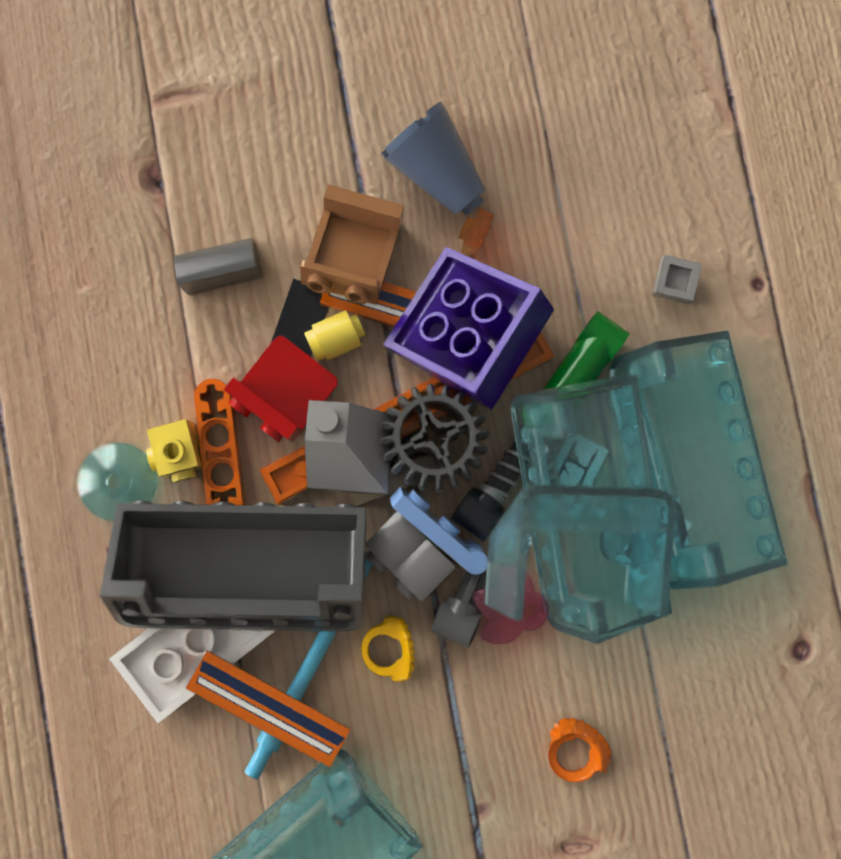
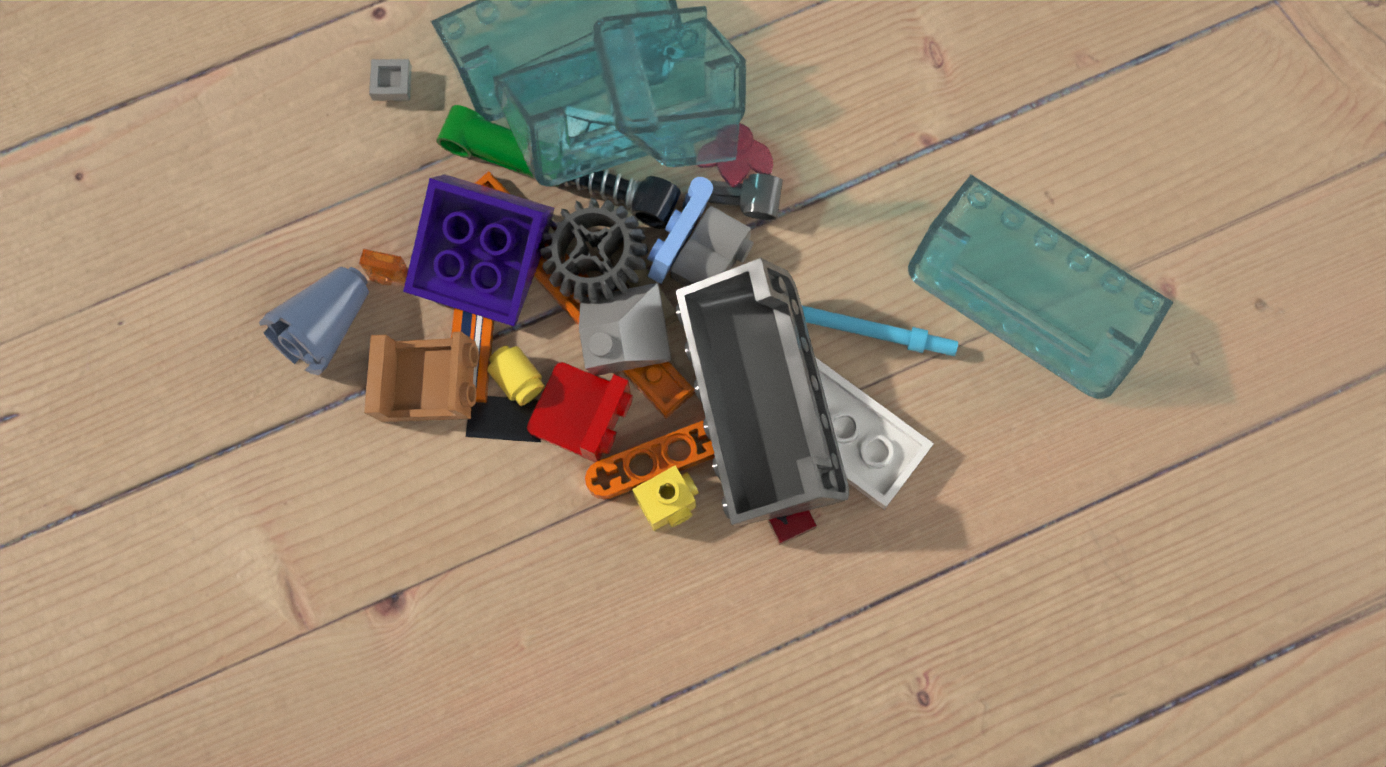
camera: 95 degrees left, 10 degrees down
(134, 473) = (708, 576): clear light blue dish -> none
(217, 266) = (467, 507): dark grey brick -> none
(268, 708) = (888, 343): tile -> none
(397, 629) = (783, 249): yellow piece -> none
(598, 753) = (847, 52): orange piece -> none

